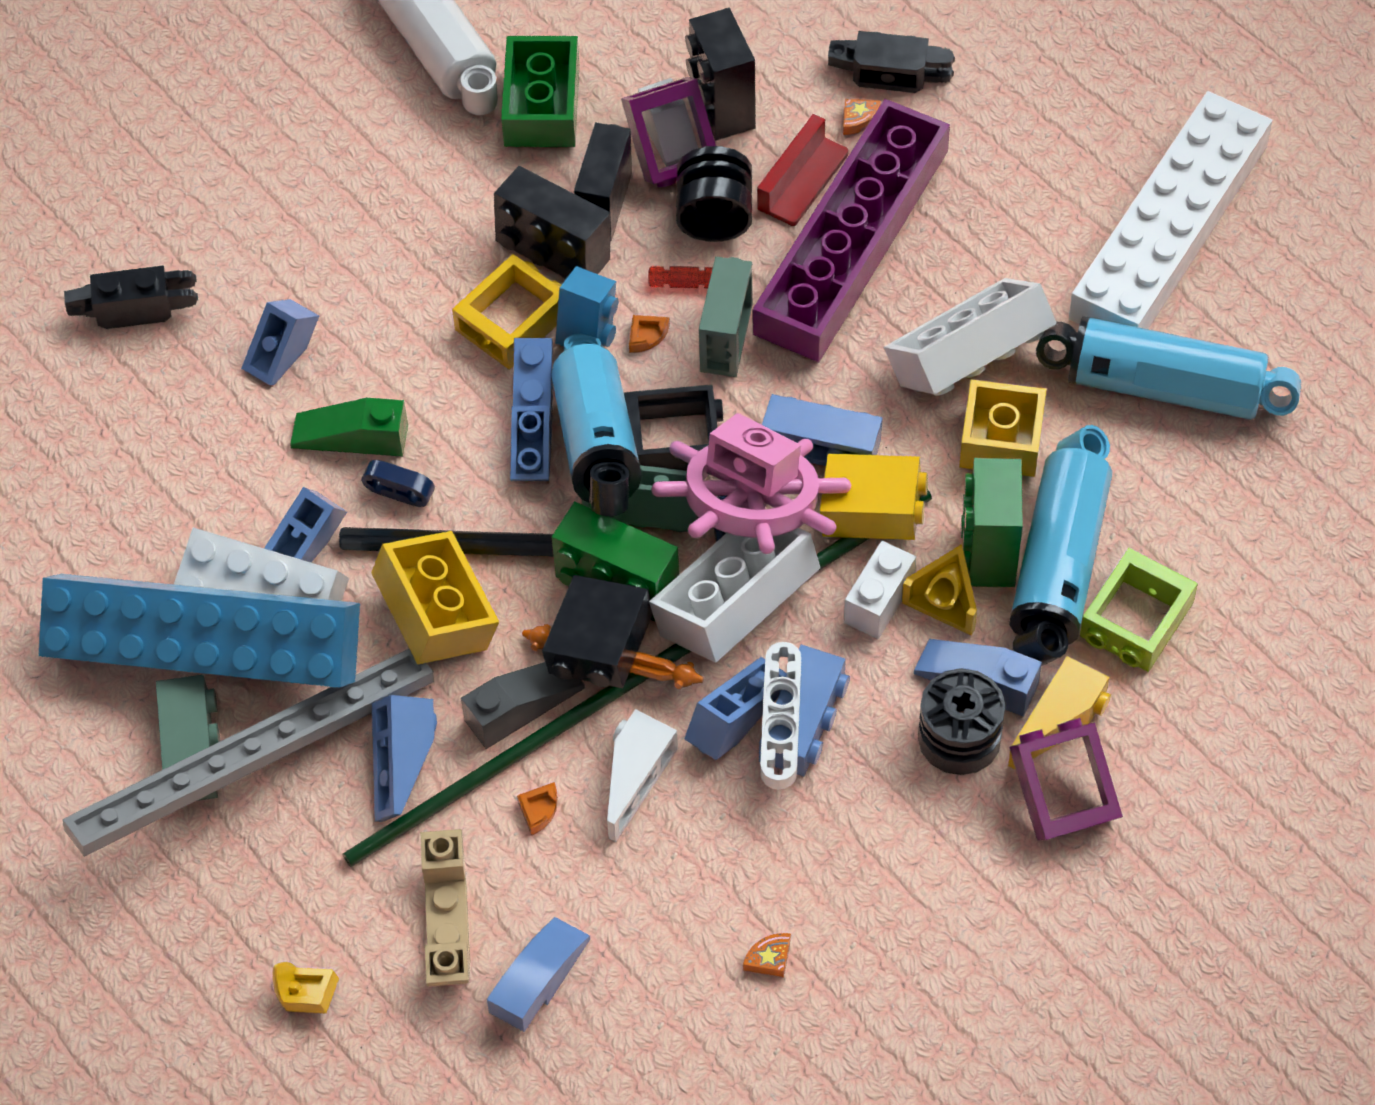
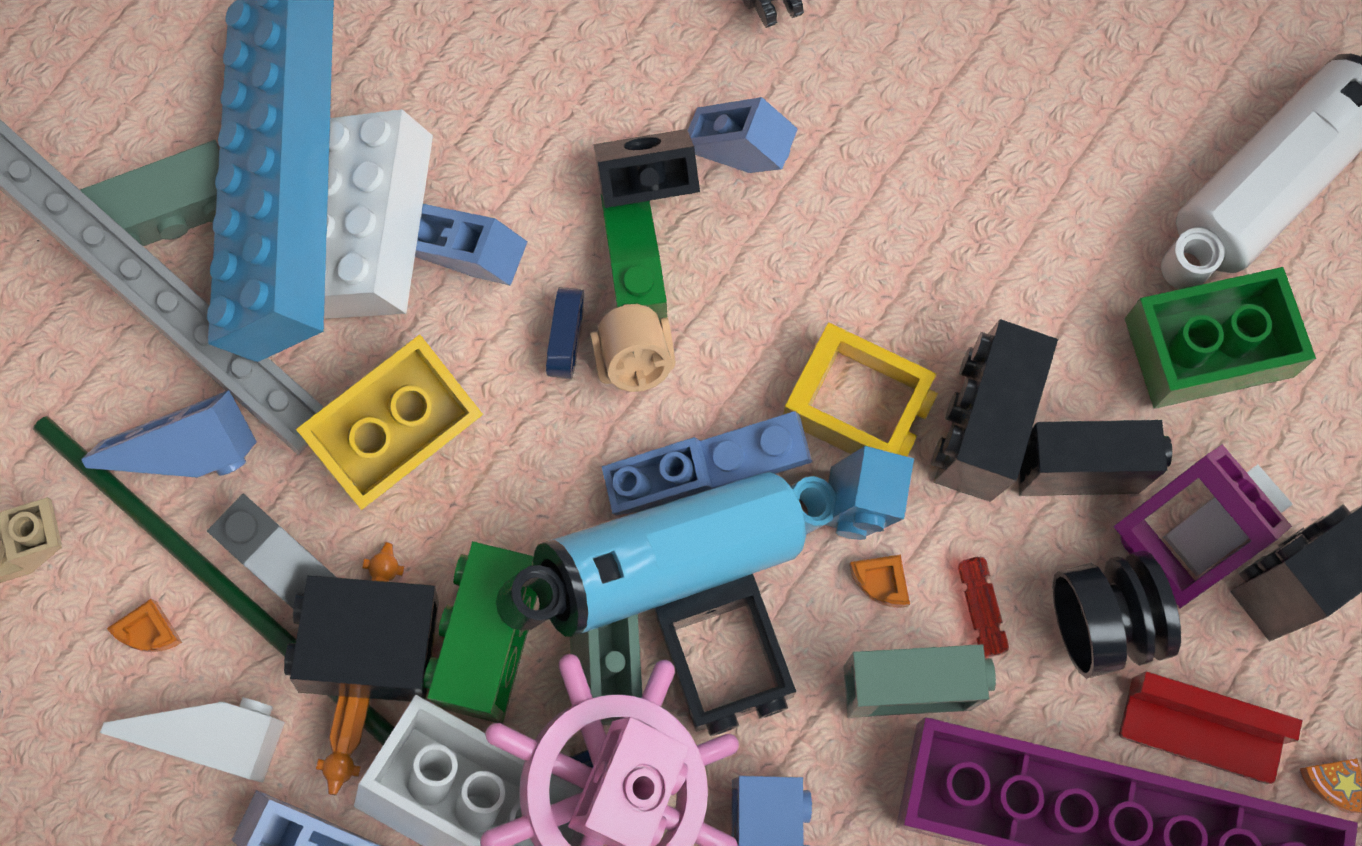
camera: 75 degrees right, 15 degrees up
(287, 399) = (647, 168): none -> black brick
(429, 433) = (634, 348): none -> light nougat piece
(470, 541) = (500, 420): black axle -> none

